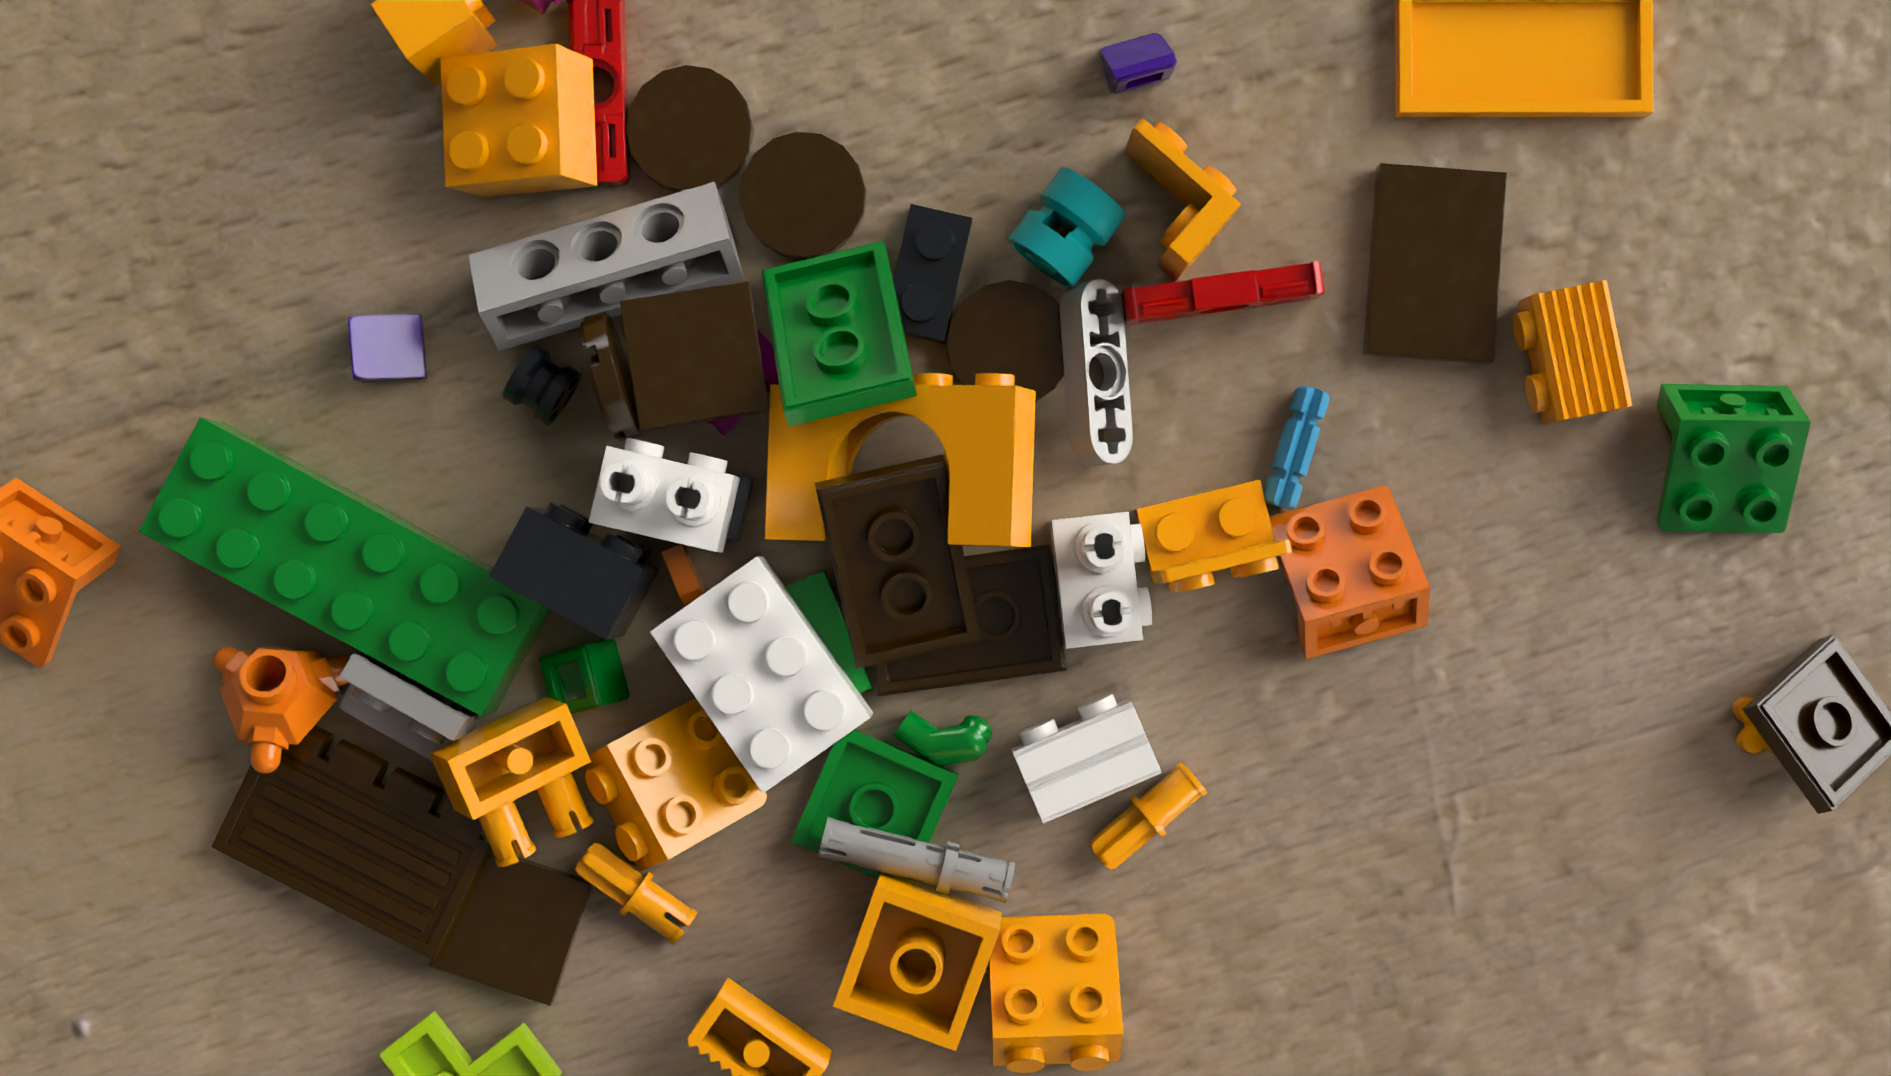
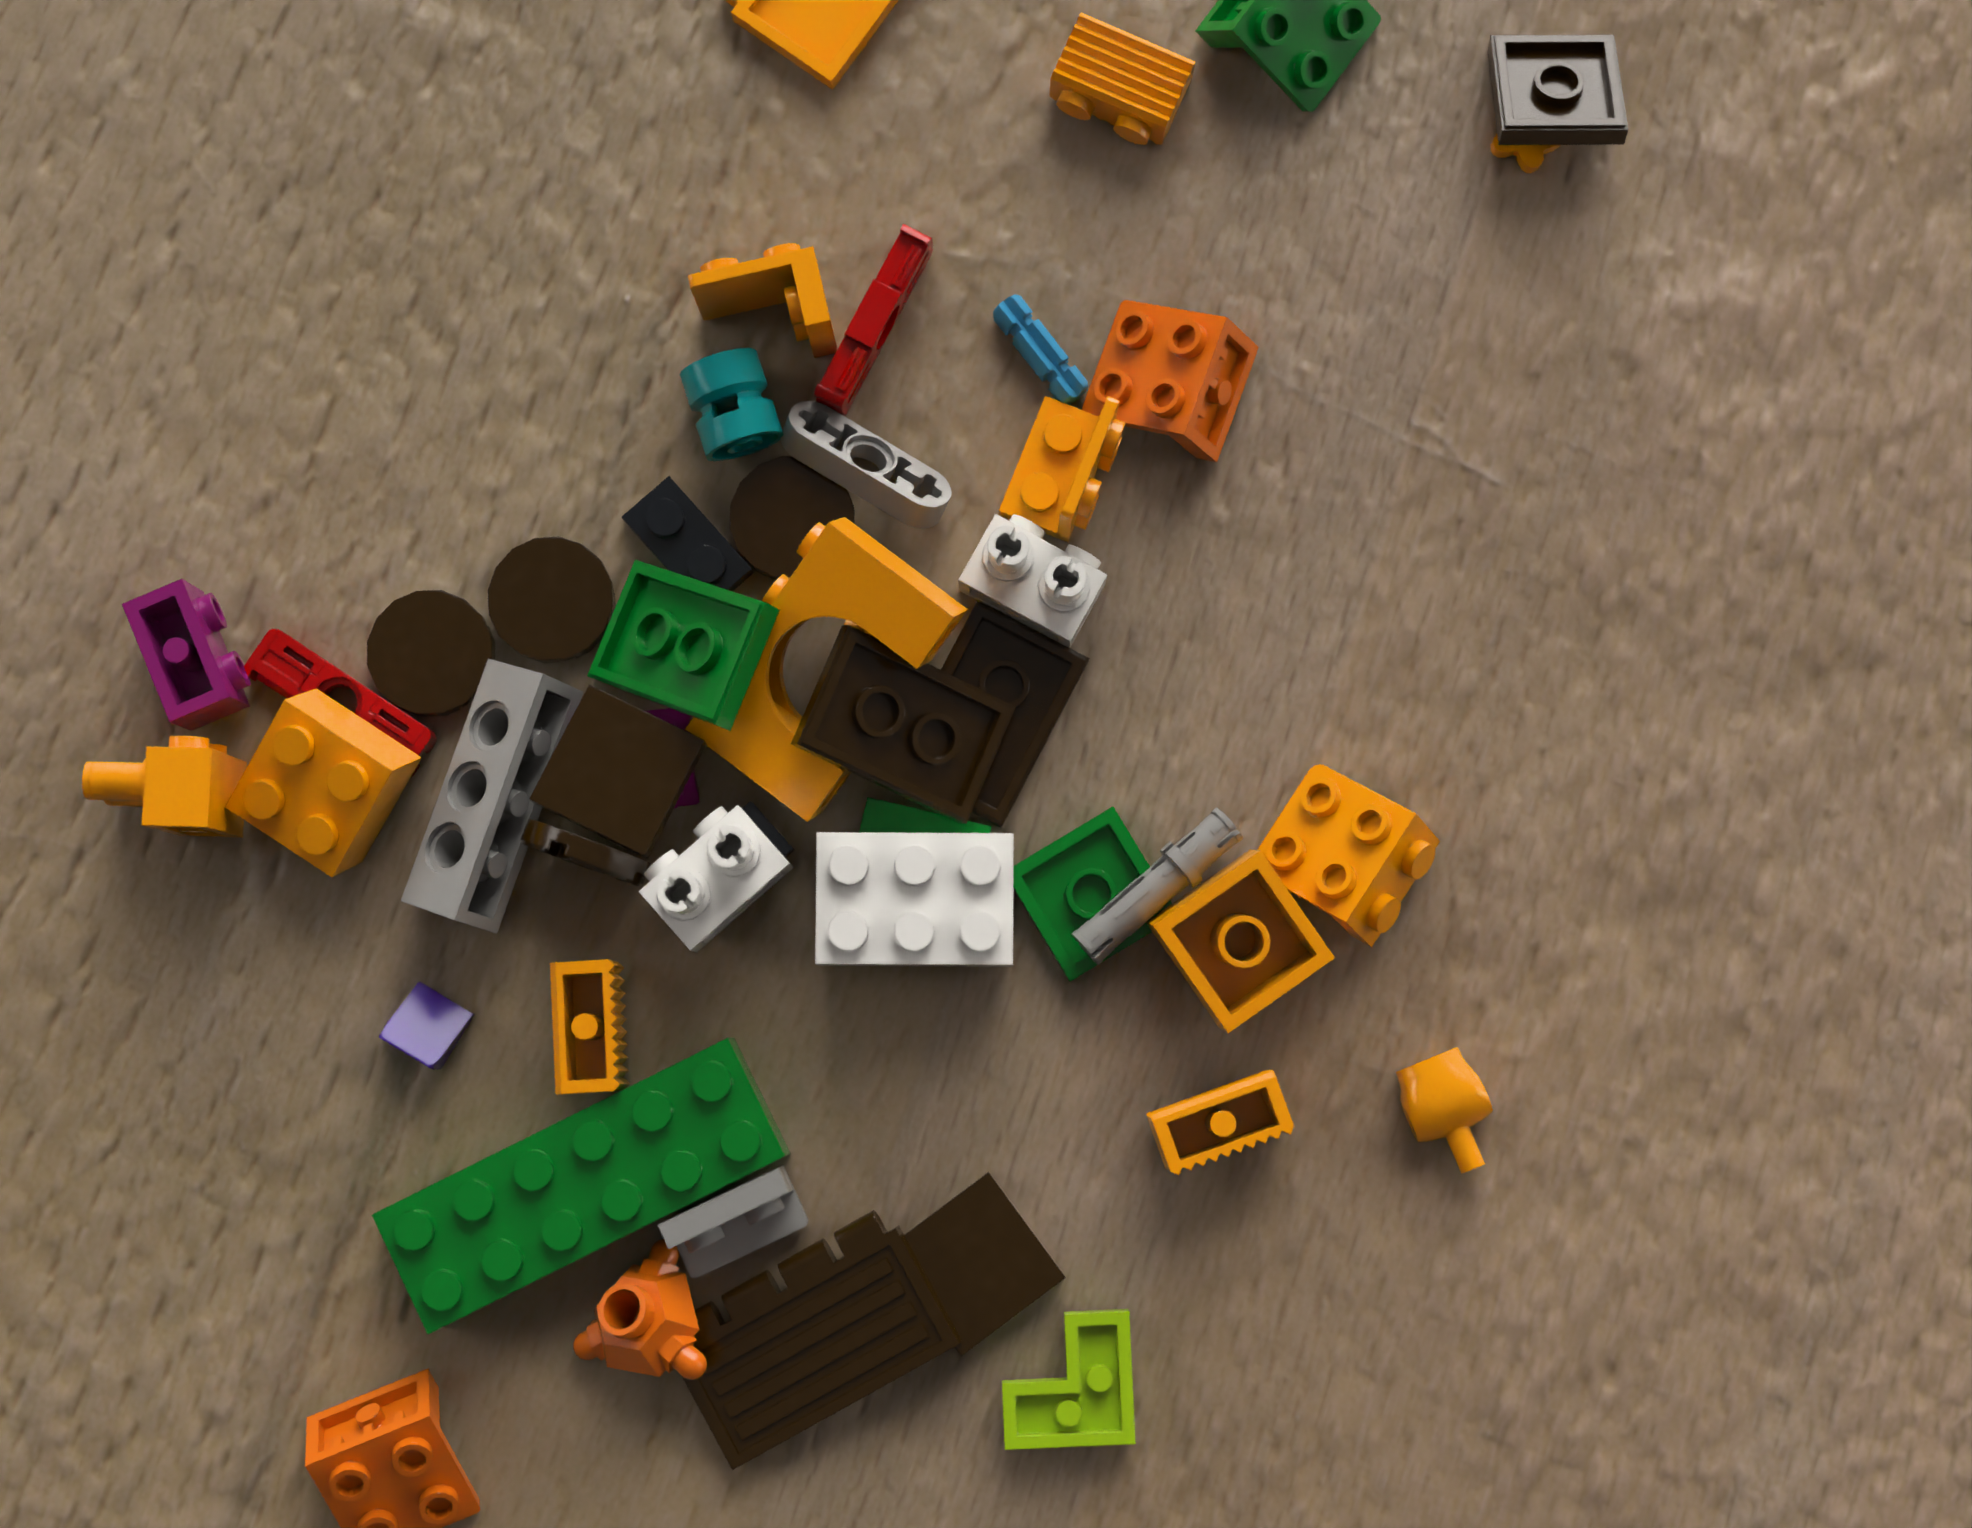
camera: 55 degrees left, 5 degrees down
(474, 480) = (588, 1026): none -> light orange brick
(508, 759) = (837, 1158): light orange brick -> none
(541, 385) = (550, 919): black wheel -> none
(574, 571) = (721, 992): black brick -> none
(585, 676) = (814, 1058): green slope -> none
(634, 891) = (1021, 1139): light orange axle -> none
(671, 785) = (952, 1044): light orange bracket -> none
(683, 573) = (787, 914): orange piece -> none
(946, 745) = (1082, 797): green arm -> none
(1085, 758) = (1171, 692): white brick -> none
(1137, 62) = (641, 258): dark purple slope -> none
(1147, 816) = (1254, 676): light orange axle -> none
(1435, 263) = (972, 139): dark brown tile -> none

